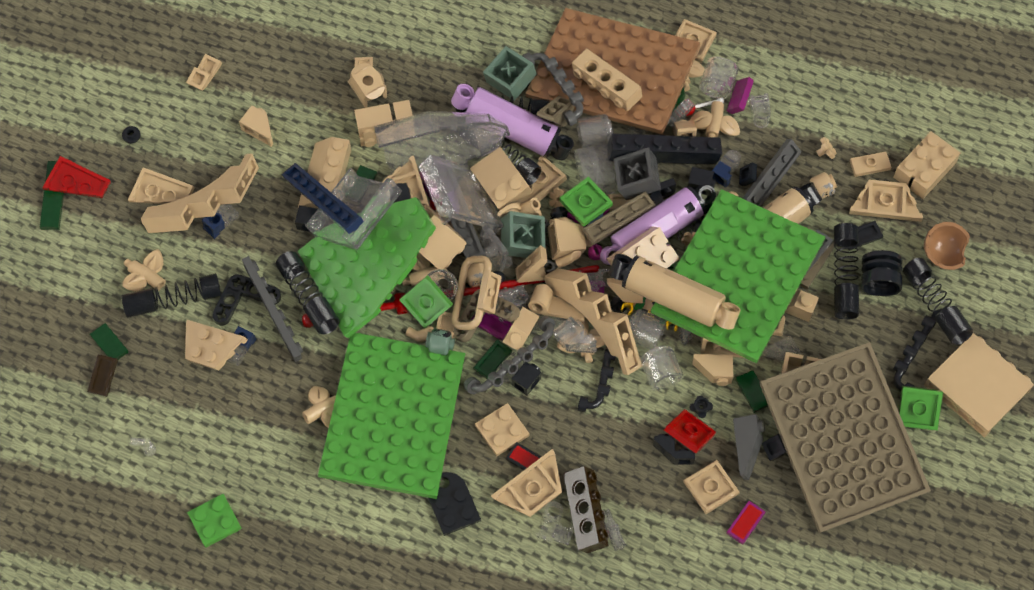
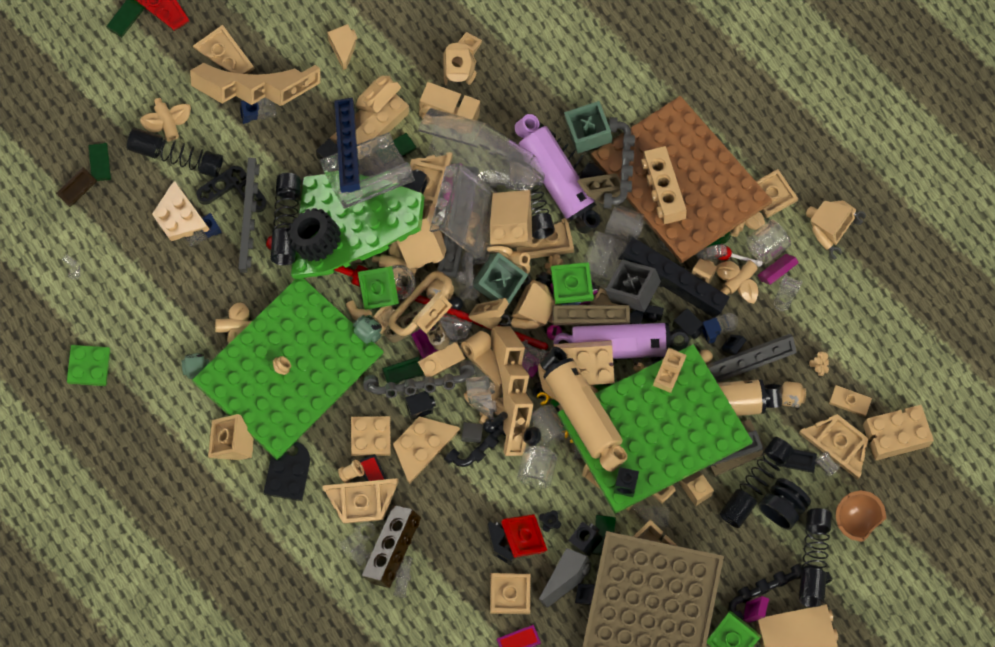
camera: 25 degrees right, 5 degrees up
(309, 463) = (193, 364): none -> sand green head
(316, 146) = (377, 94): none -> tan slope
(355, 293) = (322, 243): none -> black tyre
(383, 505) = (230, 439): none -> tan slope
(388, 414) = (281, 365): none -> tan plate
(507, 468) = (351, 471): none -> tan bush
(550, 410) = (422, 444): none -> tan wing
(585, 374) = (472, 432): none -> dark grey slope
(598, 357) = (491, 425): none -> black bar
(642, 343) = (532, 436): none -> black plate
(715, 367) = (585, 496): tan slope -> none
(719, 219) = (669, 370): none -> tan slope
(748, 407) = (579, 535): none -> black brick
(751, 329) = (626, 482): none -> black brick
(756, 35) = (831, 222): none -> tan torso
(890, 222) = (822, 459): none -> clear bush
(921, 371) = (755, 609): none -> magenta tile

